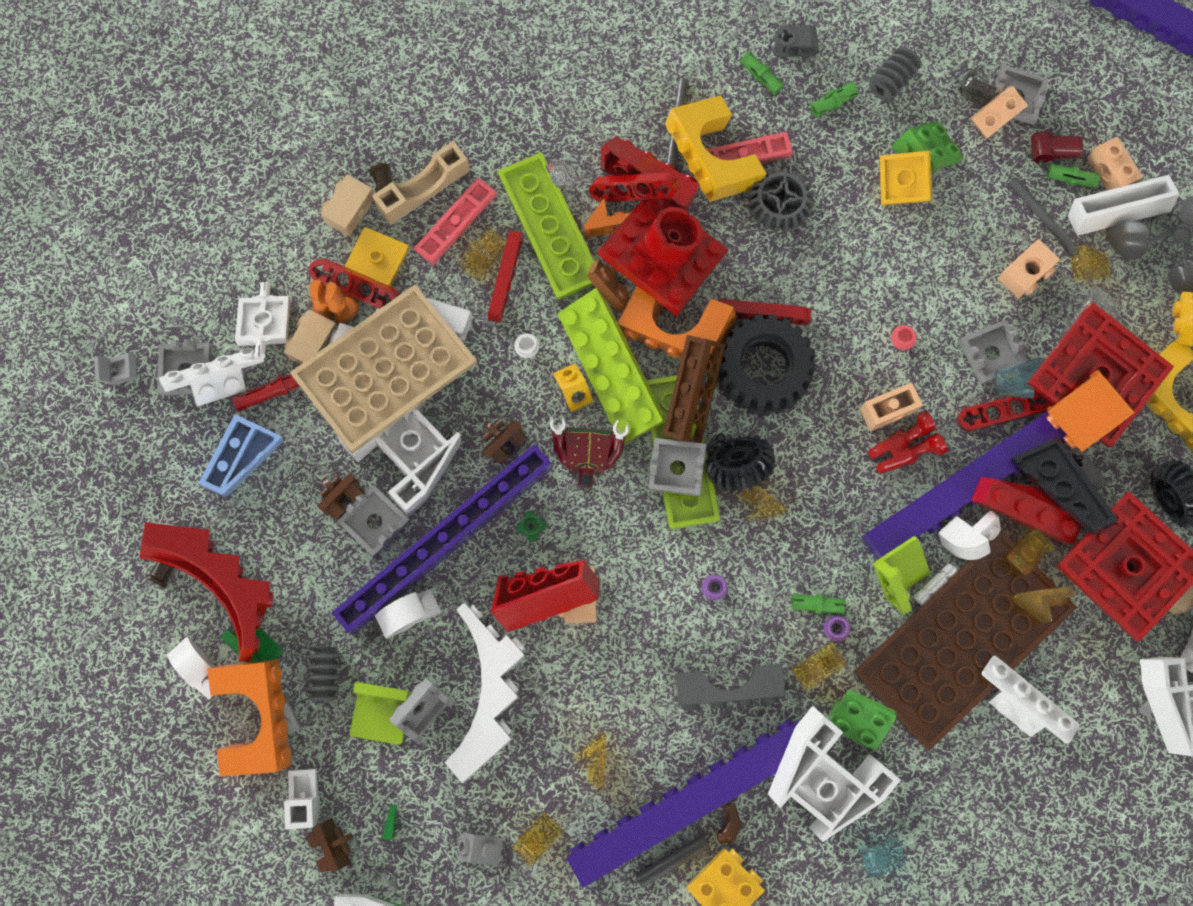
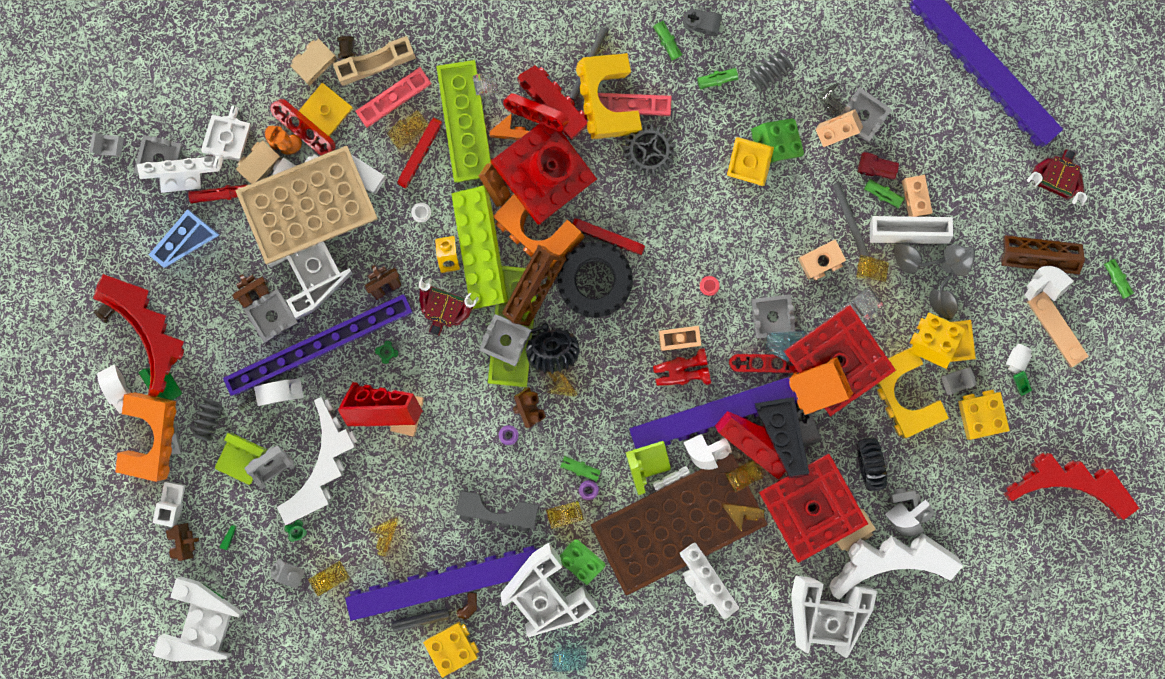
camera: 15 degrees right, 10 degrees up
(483, 788) = (295, 536): none -> green plate
(728, 545) = (527, 407): none -> reddish brown hips

